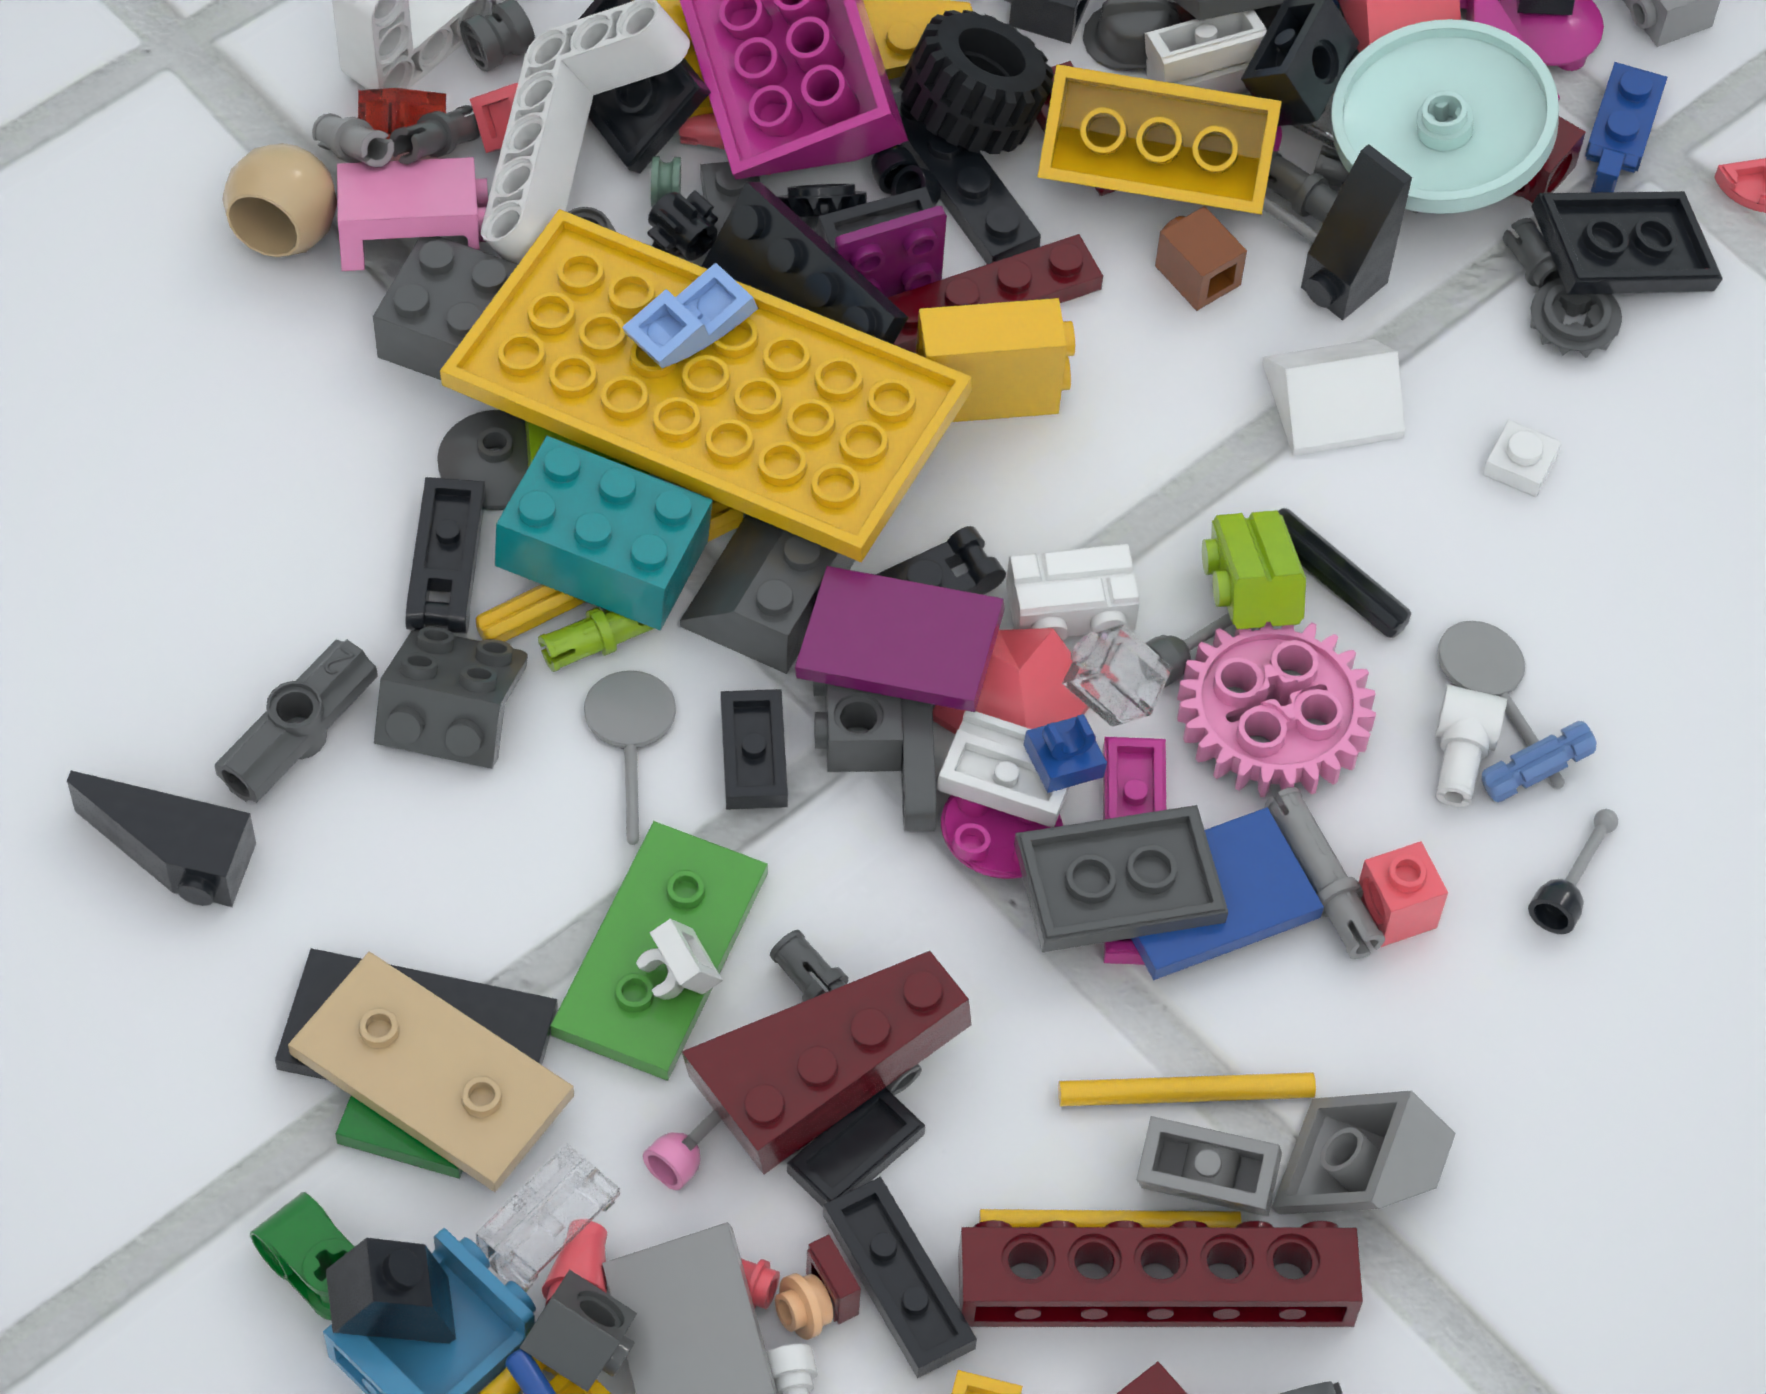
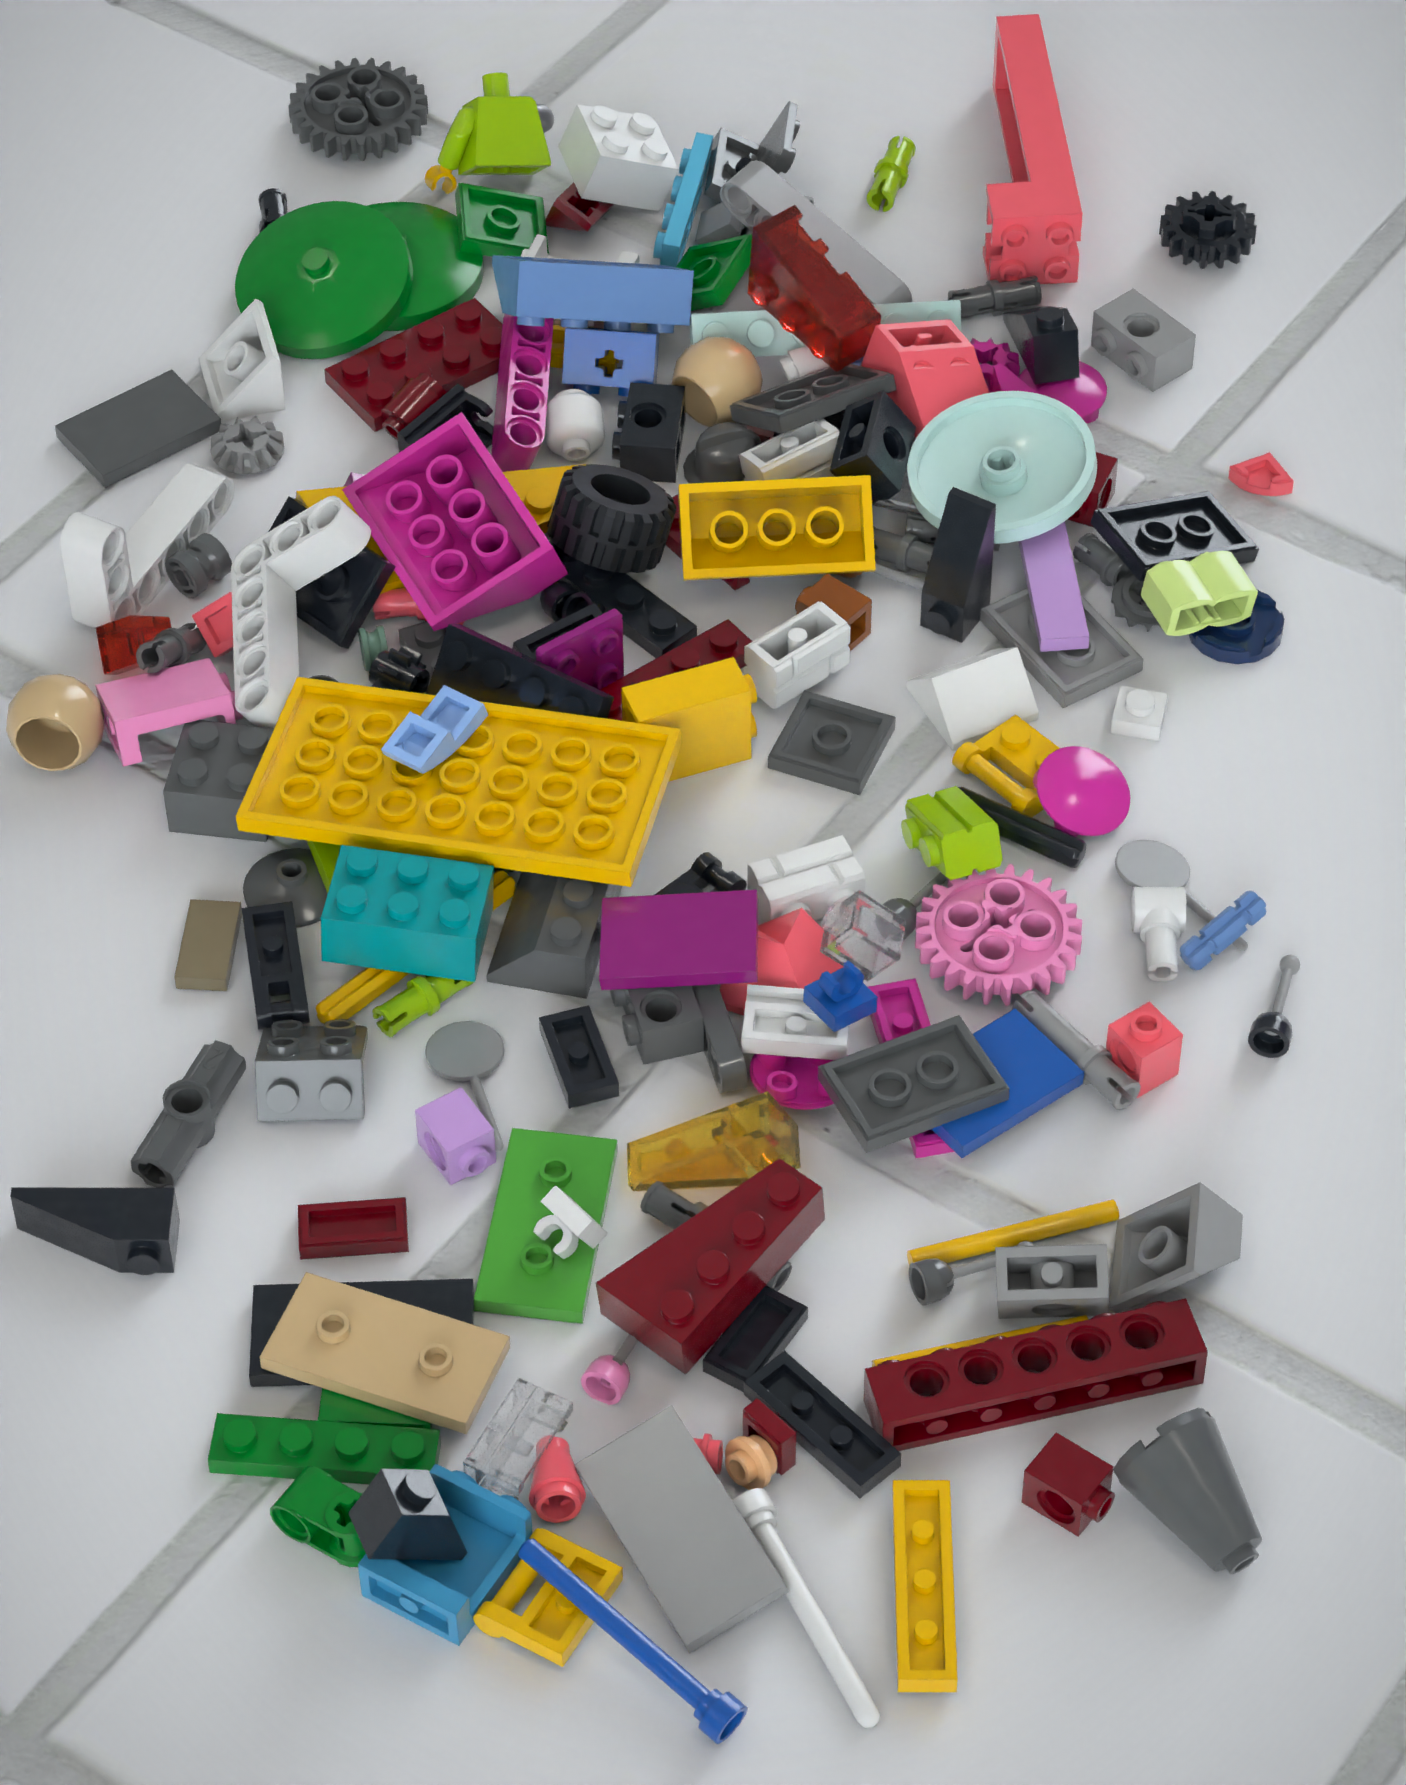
camera: 10 degrees left, 10 degrees down
(334, 1170) = (341, 1449): none -> green plate
(353, 140) = (103, 665): light grey pin -> none
(379, 511) = (208, 945): none -> dark tan tile
(443, 901) = (353, 1228): none -> dark red tile
(581, 1332) = (575, 1515): dark grey brick -> none
(586, 818) = (455, 1136): none -> lavender brick
(822, 198) = (513, 629): black gear -> none
(877, 904) = (716, 1147): none -> clear yellow slope
(1079, 1123) = (934, 1278): none -> dark grey hinge
(1142, 300) = (798, 654): none -> white brick
(1155, 415) = (831, 742): none -> dark grey tile
(1375, 487) = (1017, 751): none -> yellow plate
(1424, 547) = (1082, 791): none -> dark pink dish
(1458, 344) = (1063, 673): none -> light grey tile
(1464, 285) = (1054, 591): none -> lavender tile
(1623, 123) = (1144, 450): blue hinge -> none
(1631, 326) = (1198, 593): none -> yellowish green brick
(1667, 369) = (1245, 640): none -> dark blue tile

